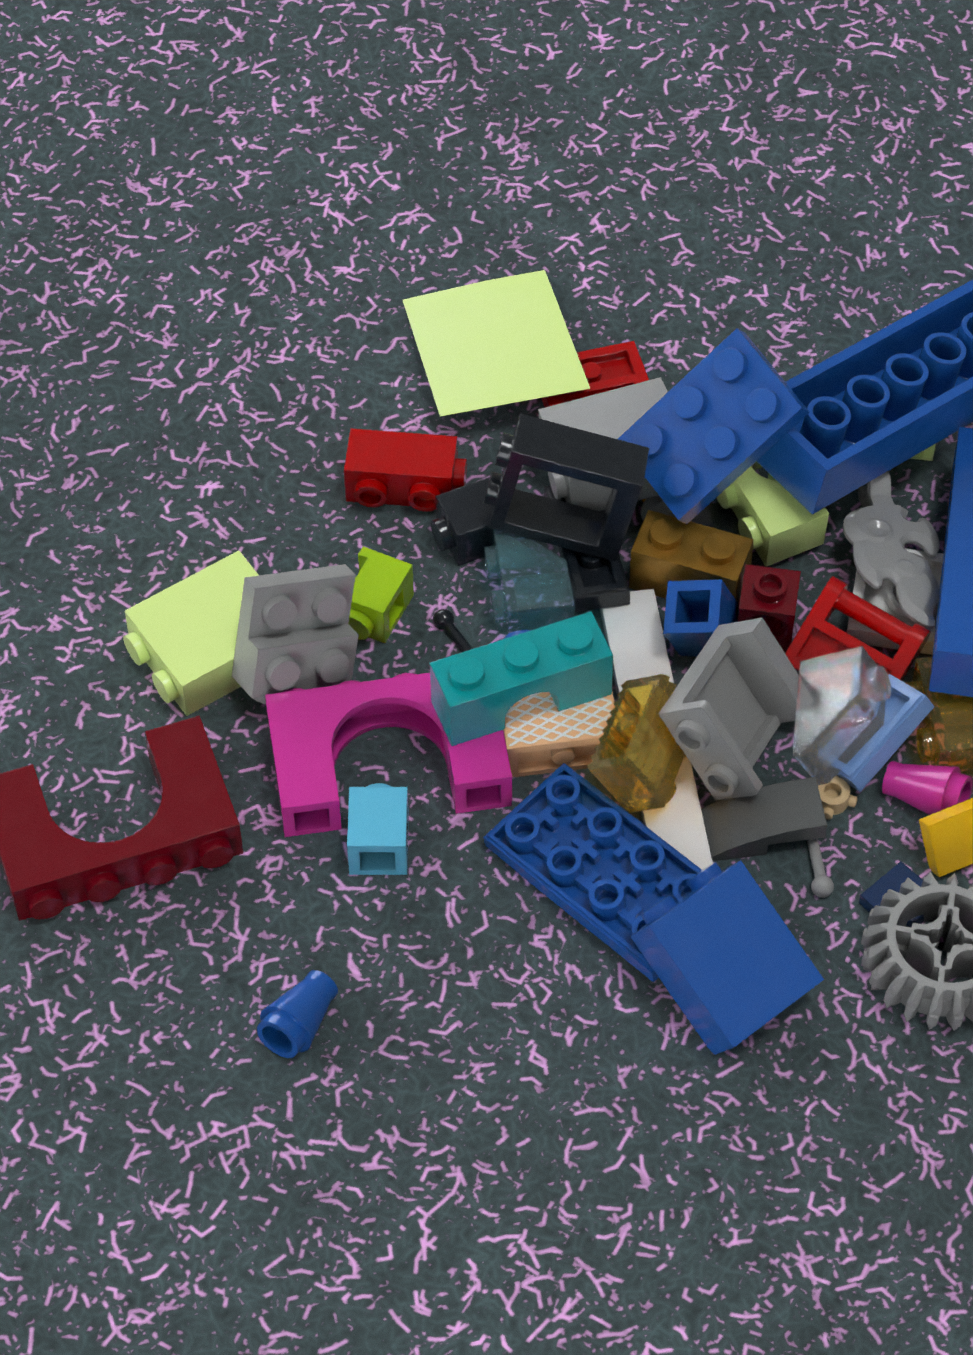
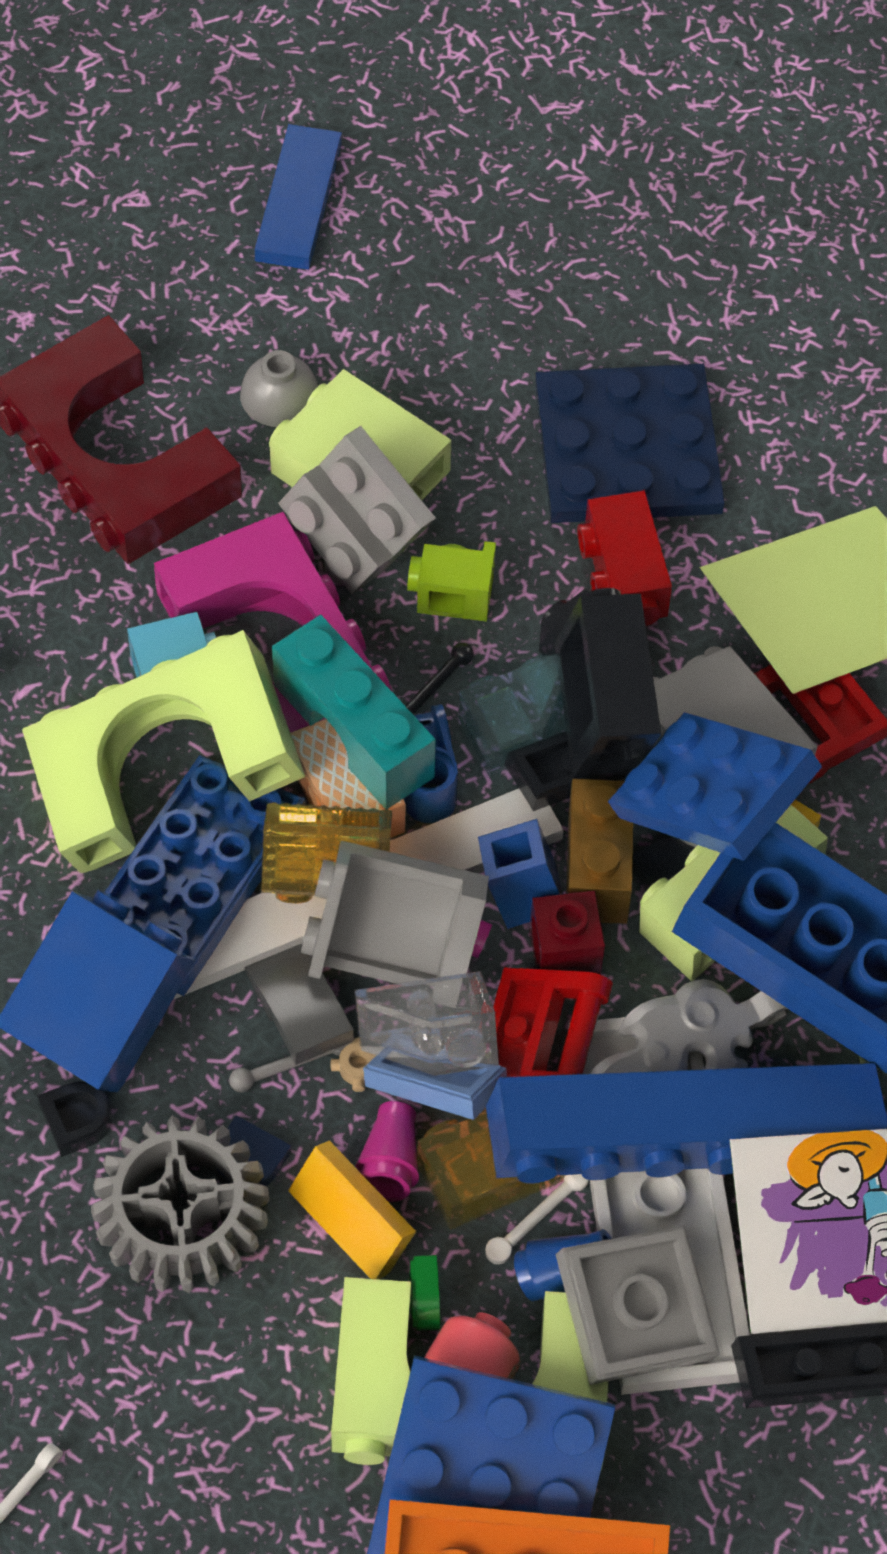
camera: 70 degrees right, 5 degrees up
(101, 683) = (276, 388): none -> light grey brick
(270, 443) = (627, 435): none -> dark blue plate
(459, 771) = (84, 747): none -> yellowish green arch
(823, 1021) = (76, 1116): none -> black tile

